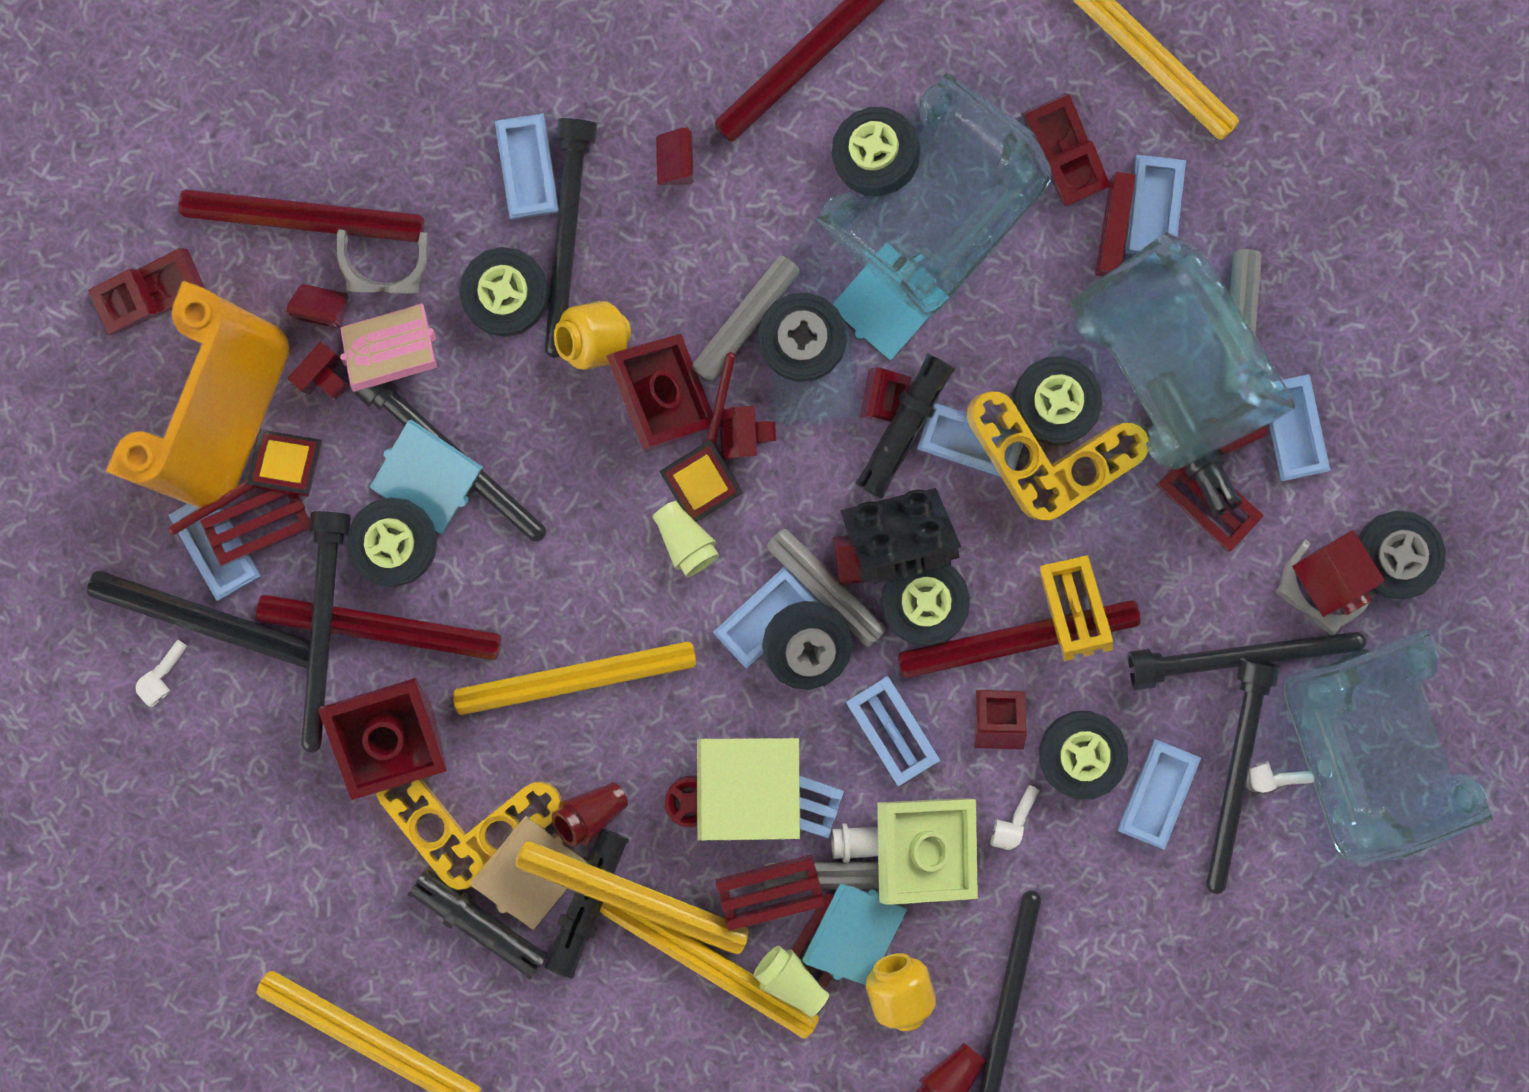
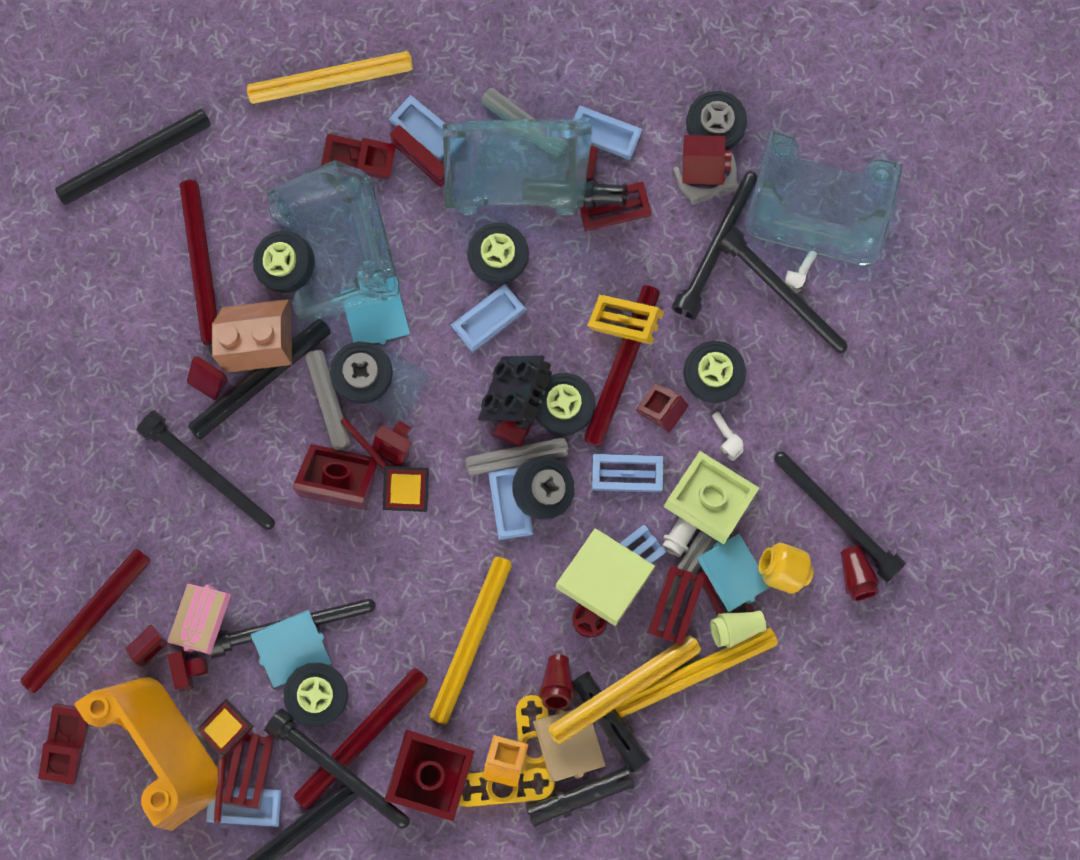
camera: 55 degrees left, 10 degrees down
(358, 283) = (148, 613): light grey cap -> none
(459, 813) = (505, 761): none -> light orange slope
(494, 272) = (206, 519): black wheel -> none
(527, 166) = (151, 468): light blue tile -> none
(590, 334) = (274, 493): yellow head -> none
(685, 540) = (433, 519): yellowish green cone -> none
(717, 220) = (256, 382): none -> black axle
(761, 178) = (253, 336): none -> nougat slope
(882, 394) = (428, 349): dark red slope -> none
(908, 419) = (446, 334): black pin -> none
(1058, 474) = (541, 281): yellow beam -> none
(1159, 794) = (766, 344): light blue tile -> none

